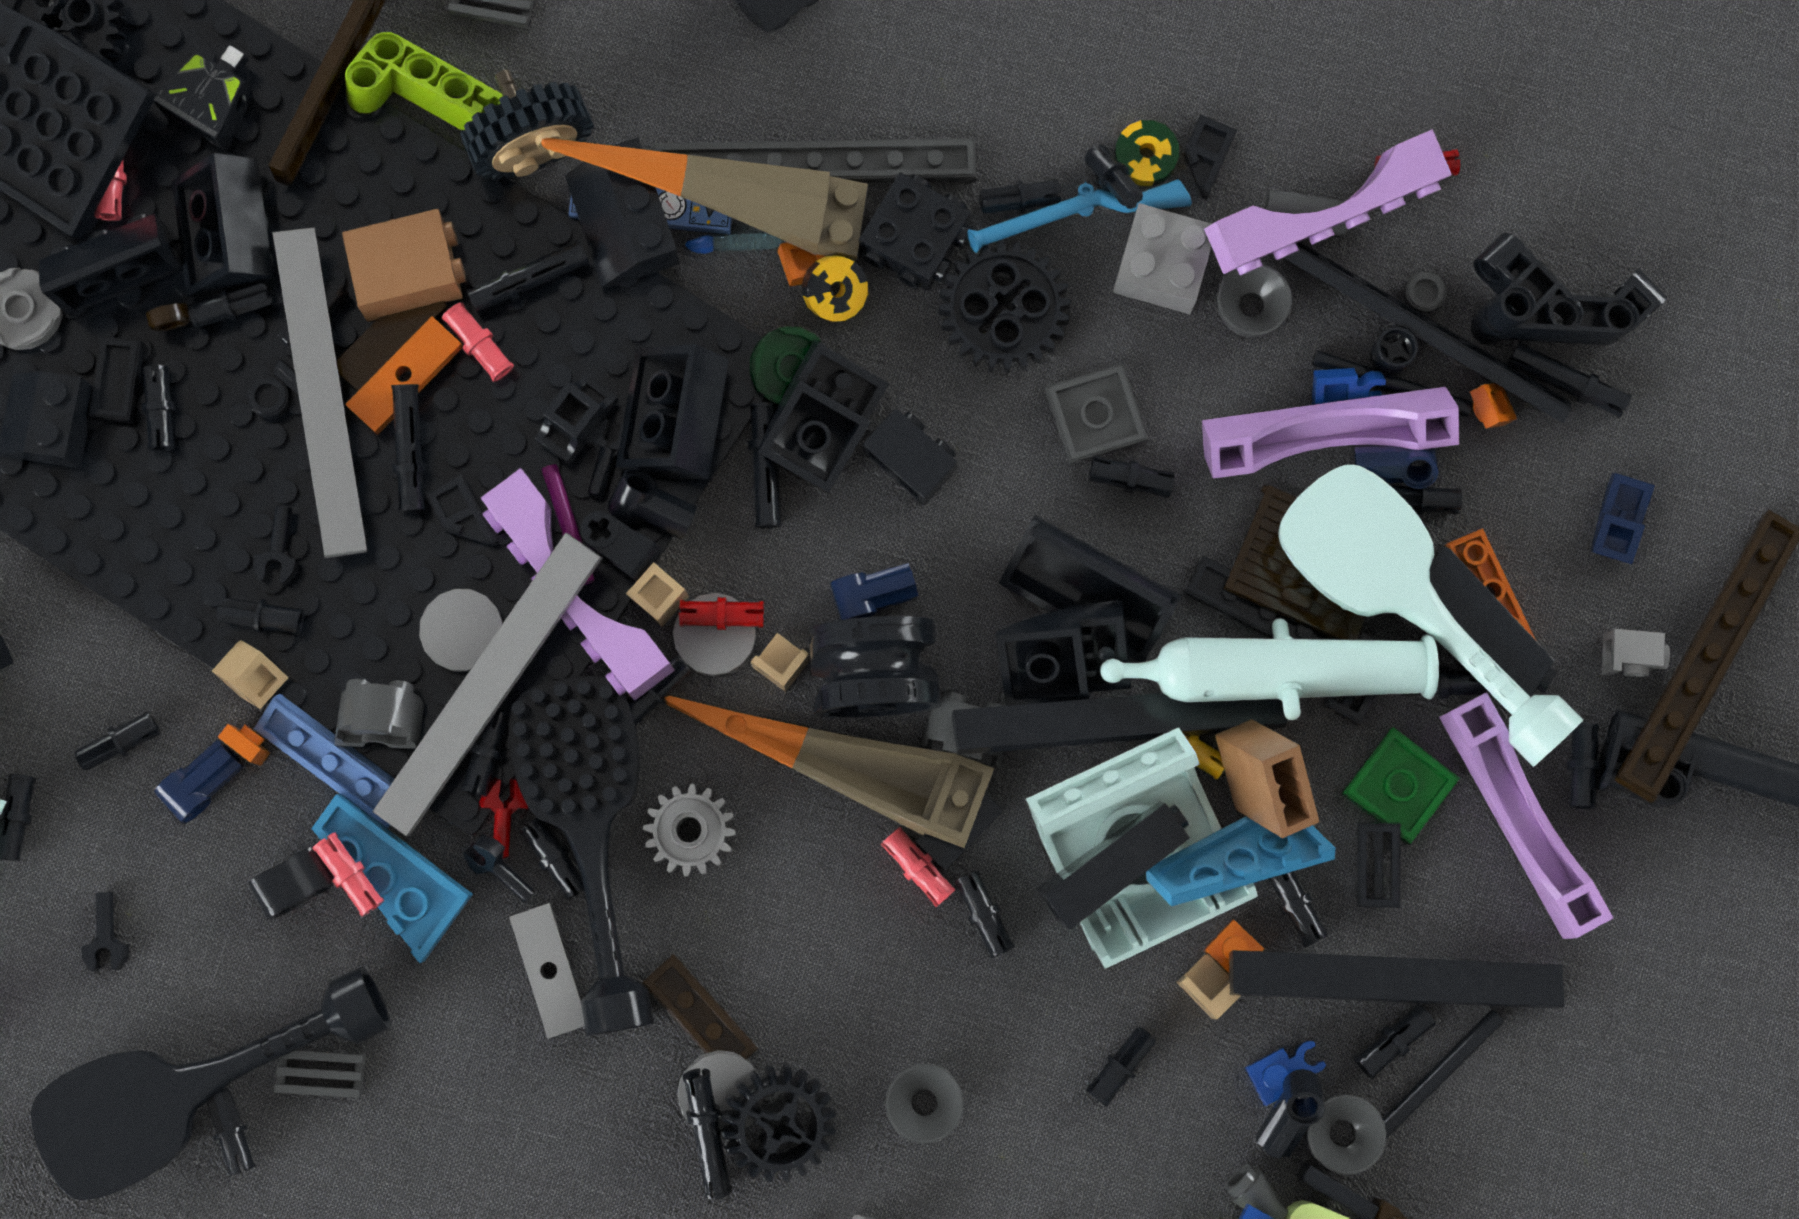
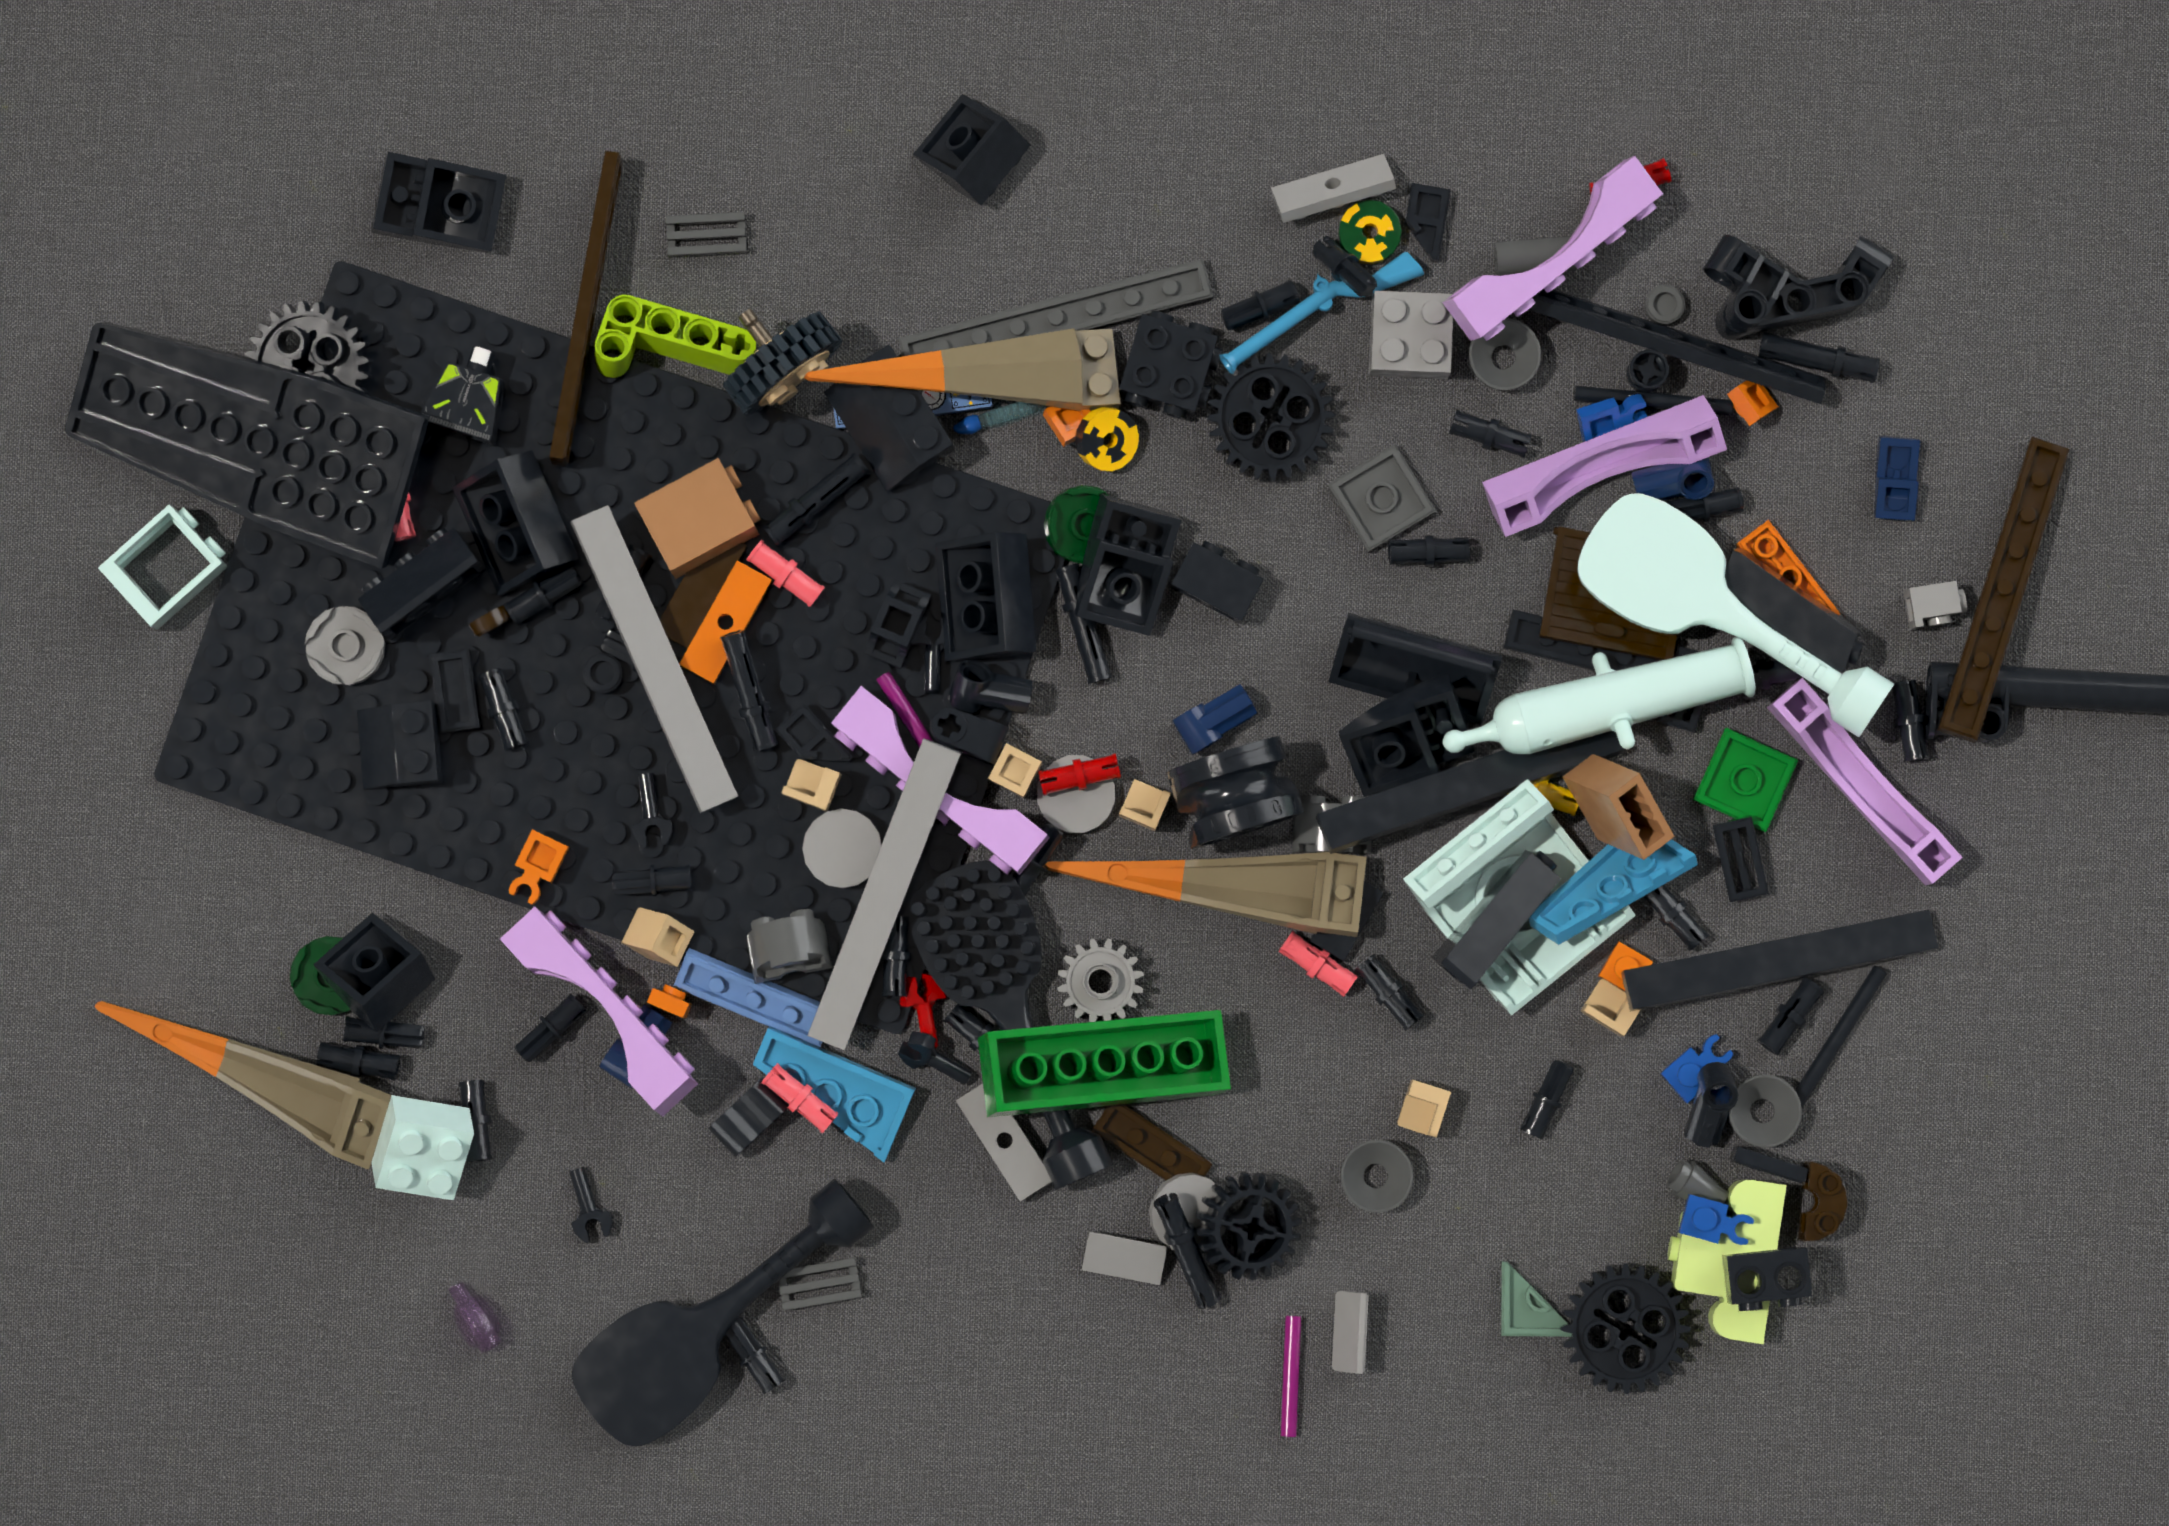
camera: 10 degrees left, 5 degrees up
(152, 567) = (540, 859): none -> orange plate
(198, 803) = (650, 1066): none -> lavender arch
(448, 559) = (812, 784): none -> tan panel
(642, 1124) = (1124, 1258): none -> light grey slope
(667, 914) = (1103, 1063): none -> green brick
(990, 1044) = (1423, 1108): none -> tan panel
(1121, 100) = (1333, 188): none -> light grey tile
(1220, 376) = (1490, 433): none -> black pin

